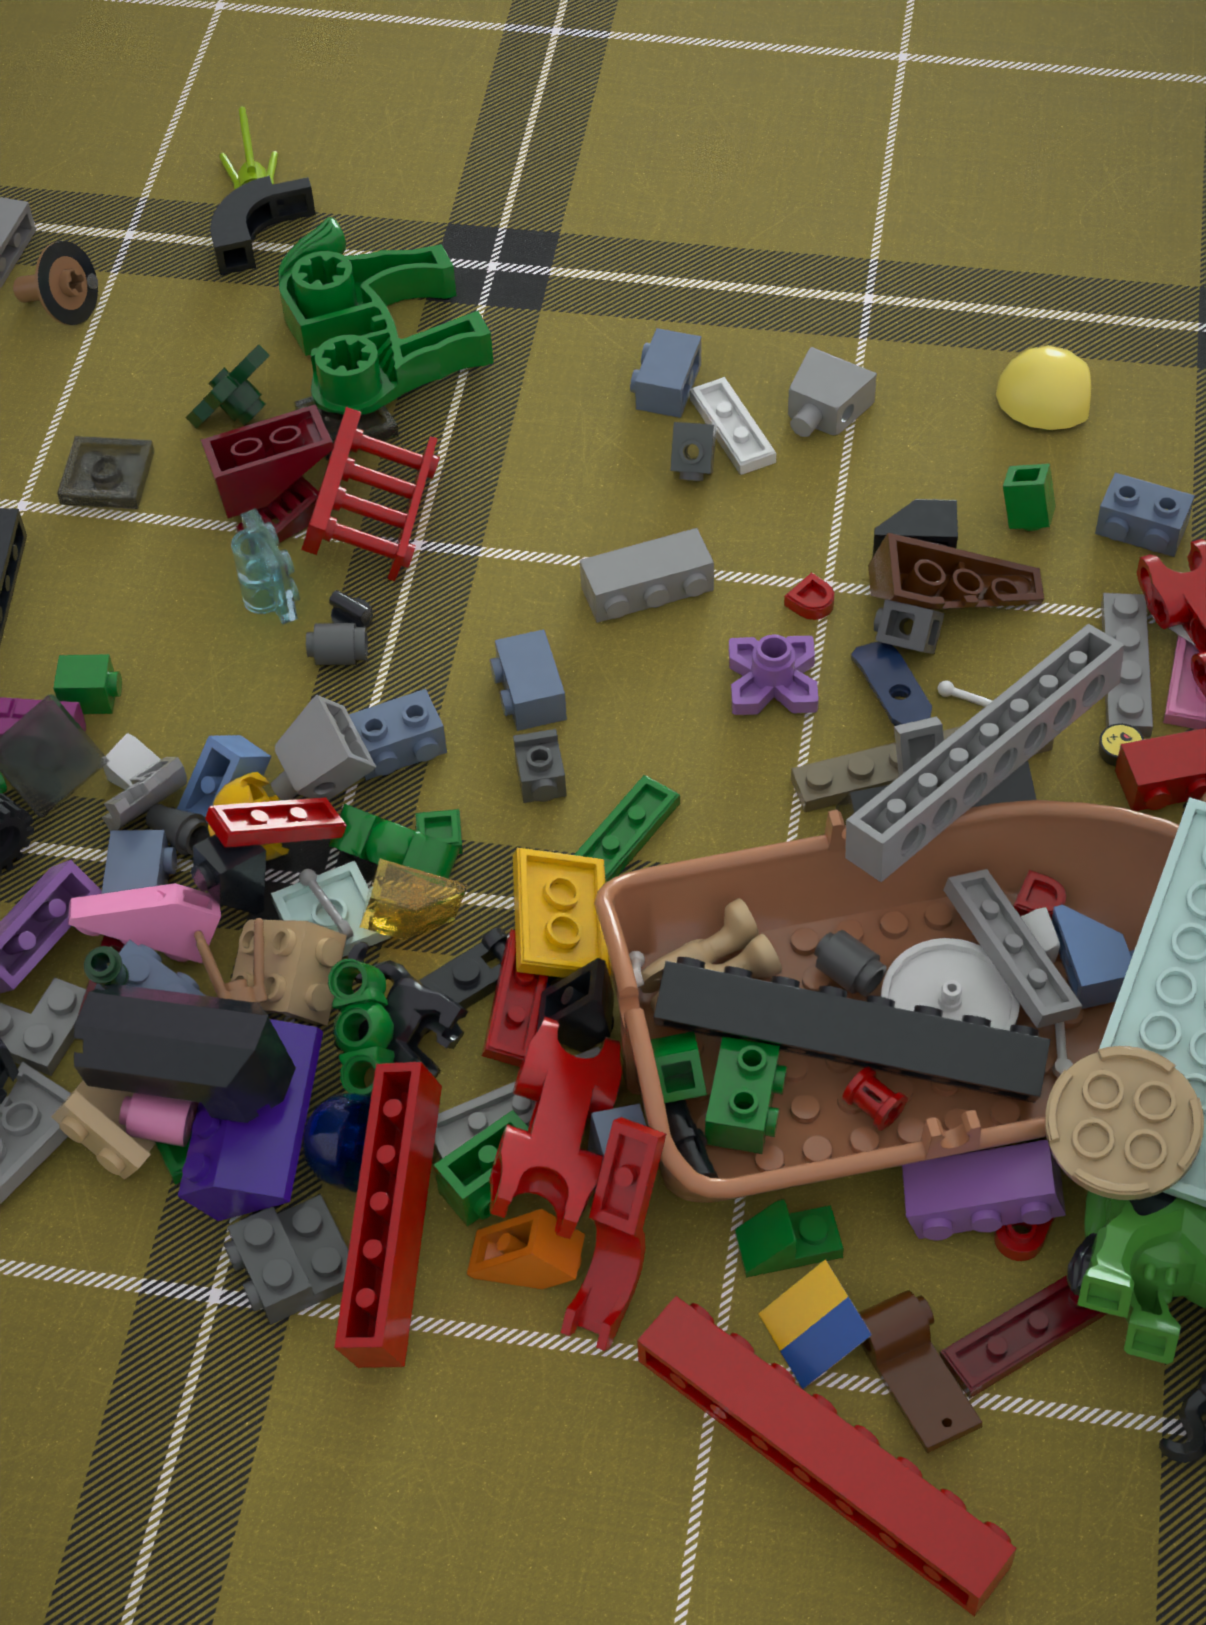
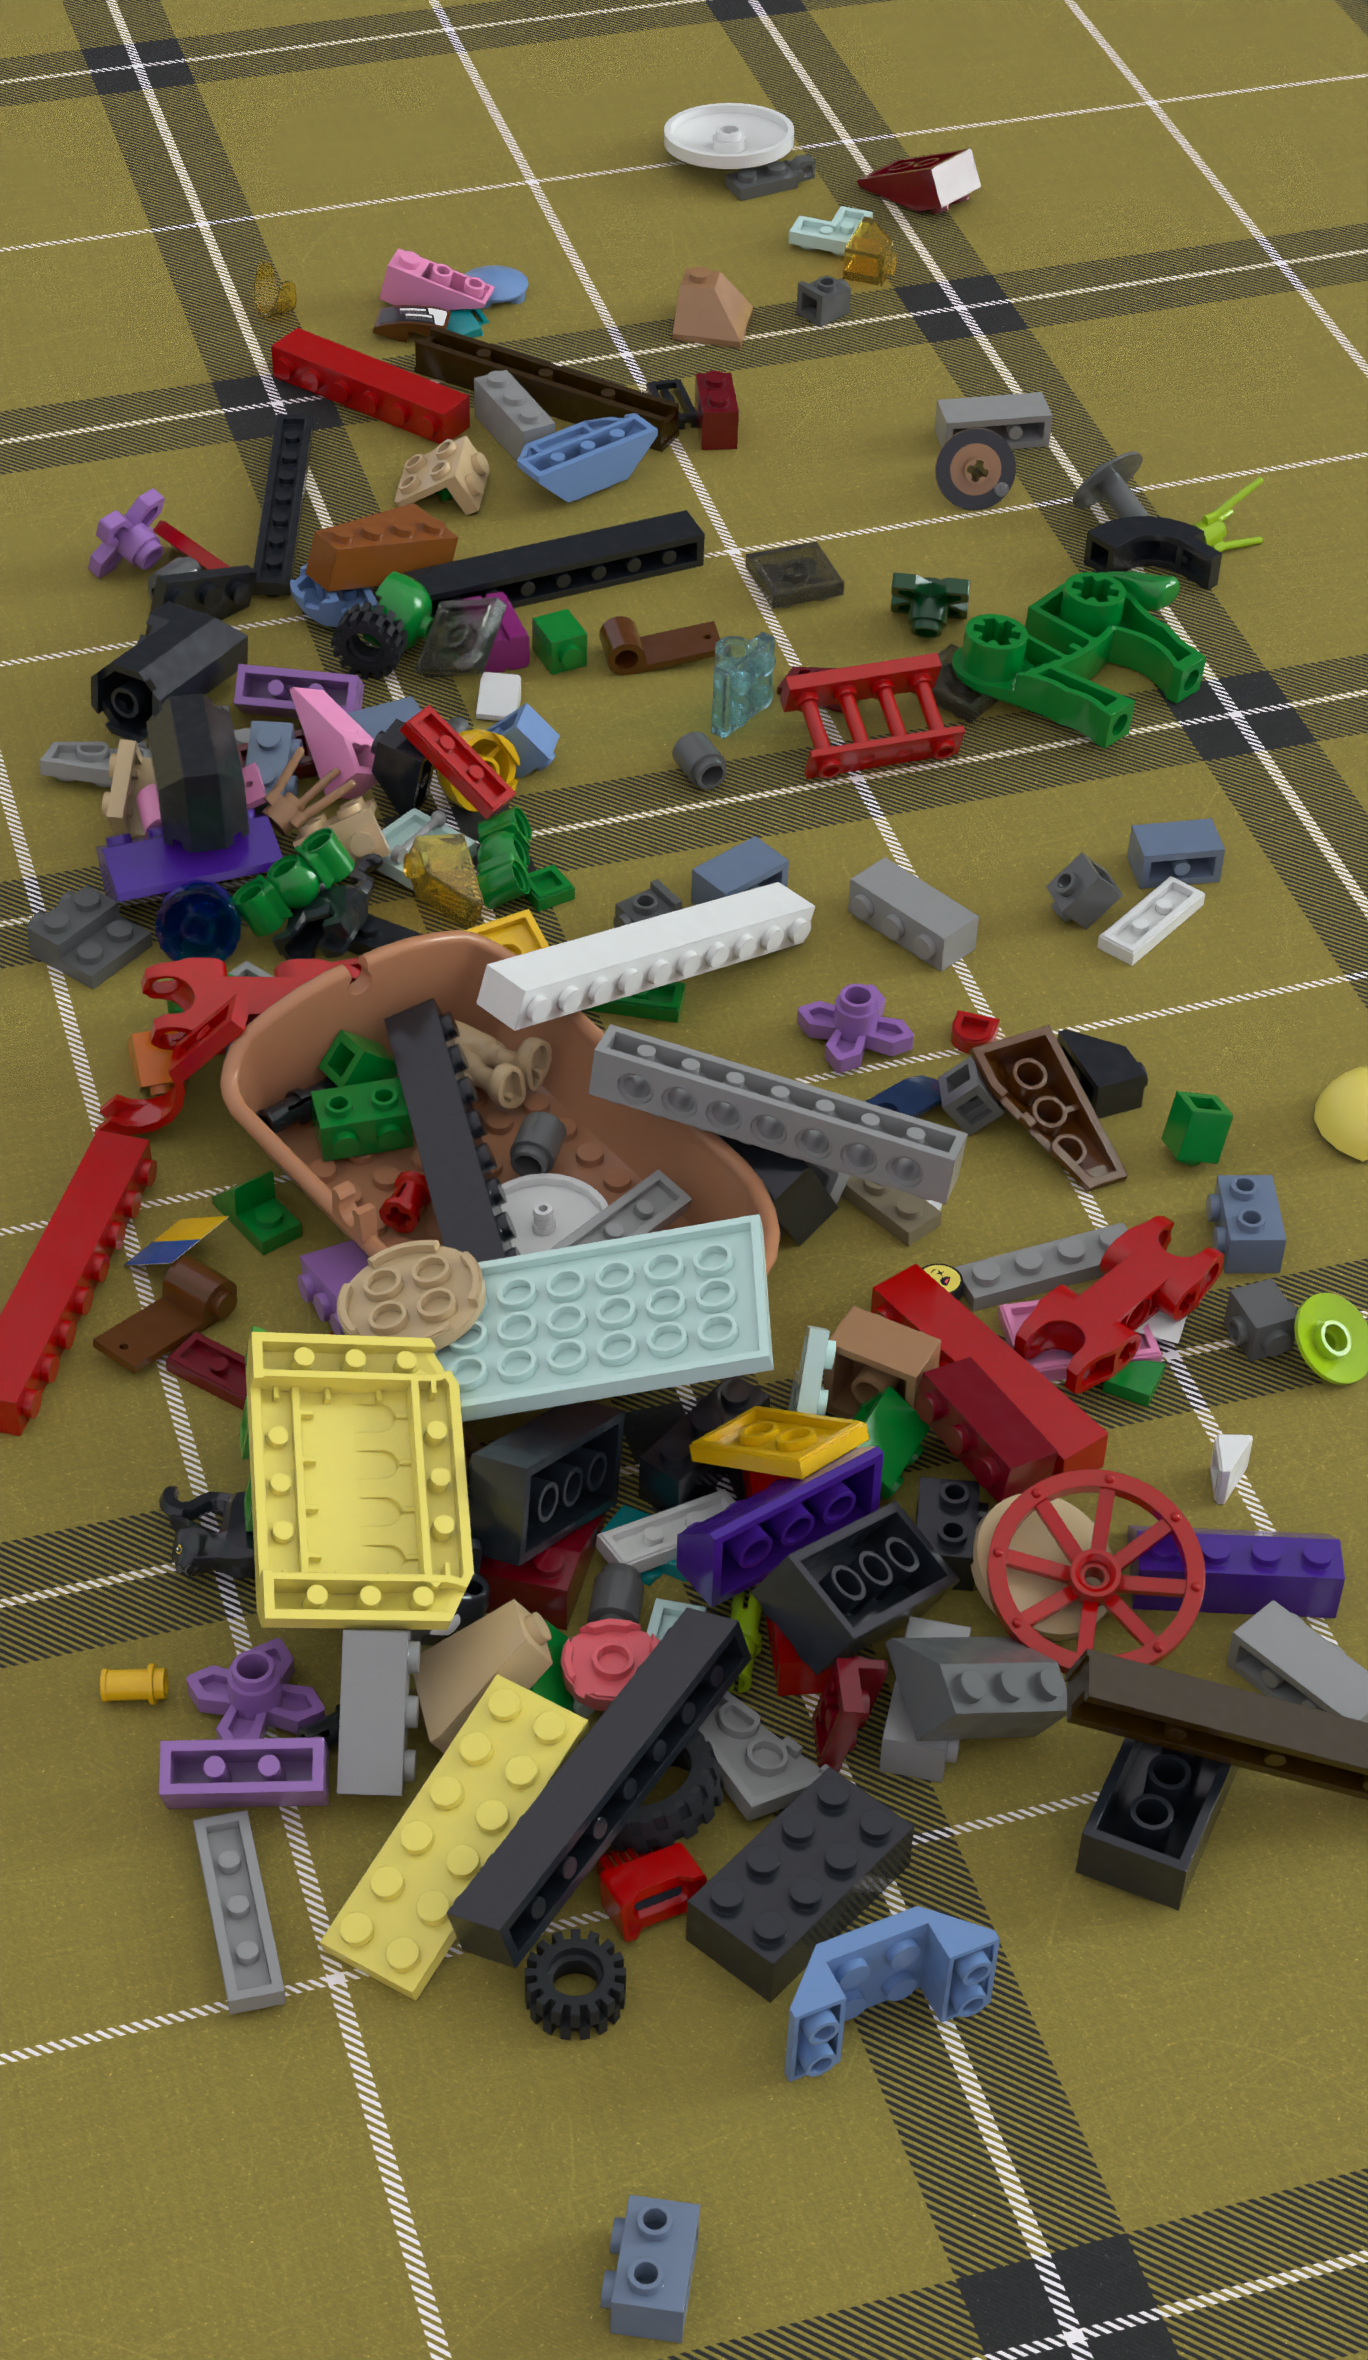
camera: 60 degrees right, 10 degrees down
(99, 972) = (241, 702): dark green pin -> none
(142, 612) = (632, 654): none -> reddish brown door
(147, 790) = (458, 701): light grey slope -> none
(153, 206) = (1110, 483): none -> dark grey piece
(265, 458) = (850, 633): dark red slope -> none
(320, 753) = (554, 786): light grey torso -> none
(350, 610) = (743, 759): black plate -> none
(389, 1216) = (113, 963): red brick -> none
(401, 732) = (625, 823): sand blue brick -> none
(637, 960) = (419, 996): white hinge -> none
(675, 780) = (643, 955): none -> white brick
(828, 394) = (1231, 963): light grey torso -> none

